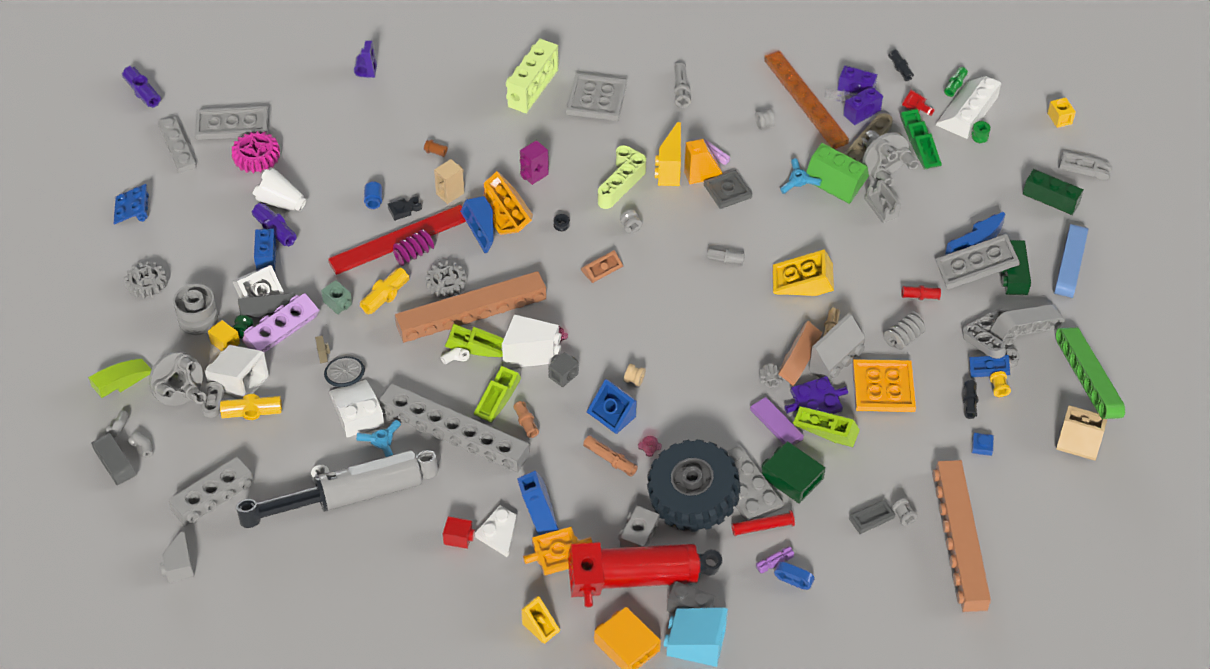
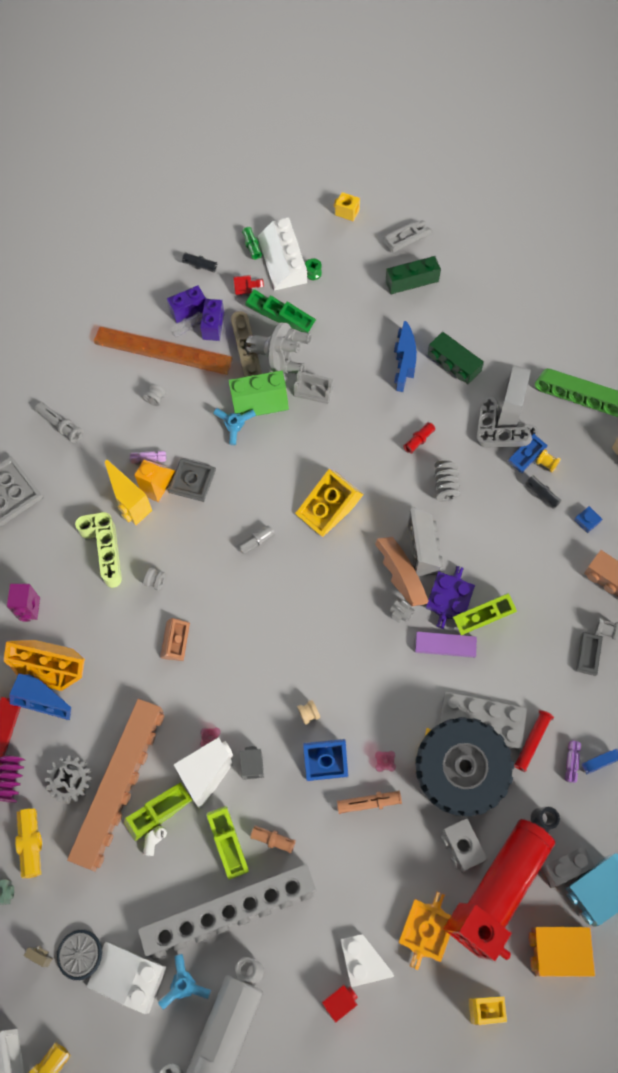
camera: 45 degrees left, 15 degrees up
(538, 502) = (371, 907): blue slope -> none
(558, 219) = (94, 630): black bush -> none
(793, 472) = (505, 675): dark green brick -> none
(832, 320) = (392, 524): tan axle -> none
(884, 385) = (480, 539): light orange plate -> none
(977, 261) = (432, 377): light grey plate -> none
(1071, 261) = (482, 319): medium blue beam -> none

